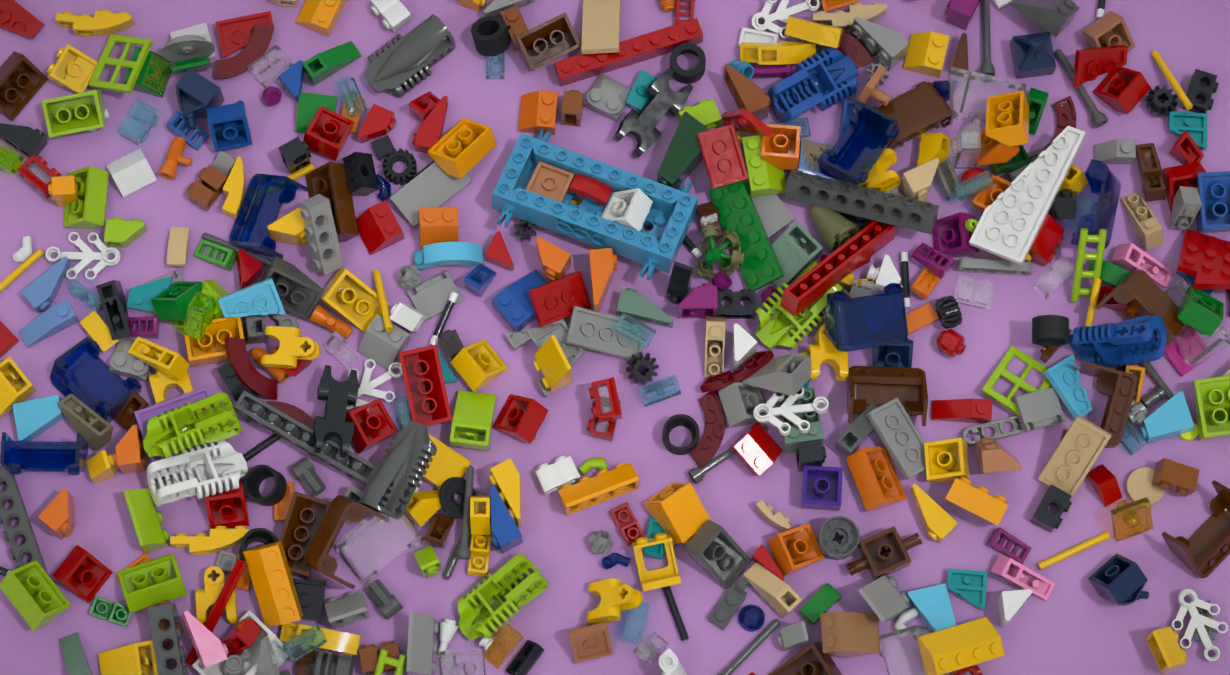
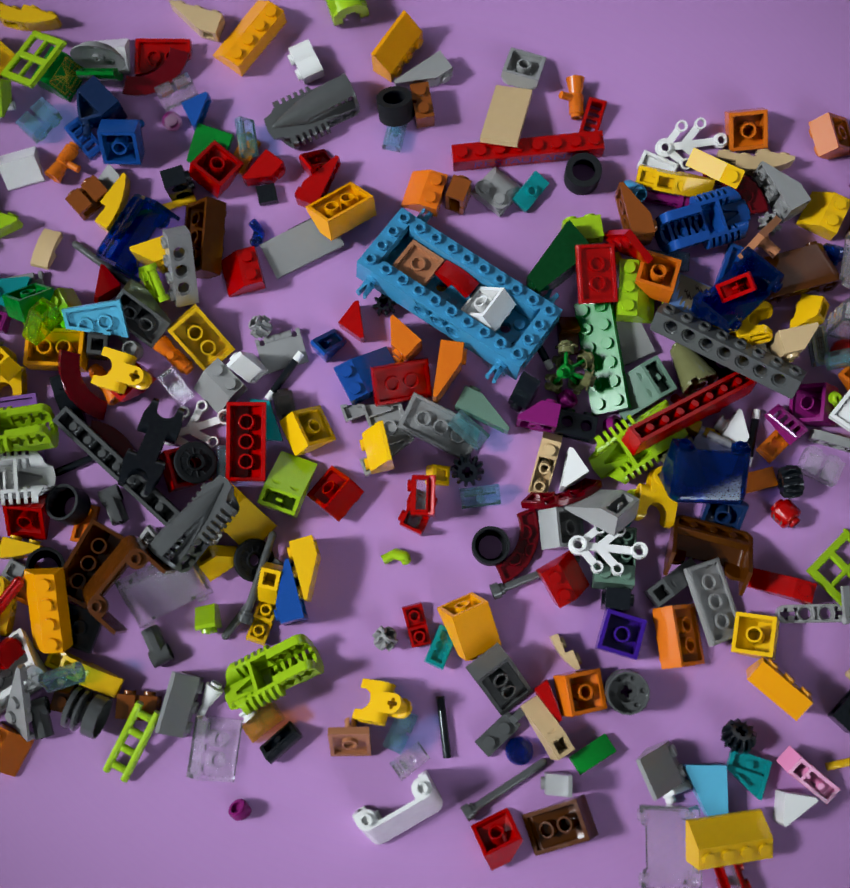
camera: 20 degrees right, 5 degrees up
(226, 260) = (89, 273): bright green slope -> none
(296, 255) = (152, 282): none -> lime plate
(330, 61) = (235, 99): green slope -> none
(347, 609) = (116, 649): light grey slope -> none
(360, 173) = (237, 215): black brick -> none
(376, 427) = (186, 470): none -> black wheel
(382, 300) = (227, 345): yellow piece -> none
(399, 156) = (275, 205): black tyre -> none
(438, 225) = (299, 284): orange slope -> none
(439, 530) = (227, 589): reddish brown slope -> none
(448, 253) = (304, 313): medium azure arch -> none
(547, 42) = (449, 123): reddish brown slope -> none
(556, 475) = (358, 559): white brick -> none
(598, 488) = (394, 583): light orange slope -> none
(614, 559) = (395, 658): clear blue arm -> none
(620, 378) = (442, 473): none -> yellow slope
(643, 124) = (549, 206): black piece -> none
(657, 577) = (435, 688): yellow window -> none
(850, 634) = (616, 798): medium nougat slope -> none
(856, 141) = (736, 287): none -> red slope
(889, 542) = (680, 727): reddish brown brick -> none
(935, 519) = (728, 690): yellow slope -> none
(951, 555) = (738, 736): none -> black gear
(994, 457) = (806, 645): nougat slope -> none
(1011, 540) = (788, 729): magenta slope -> none

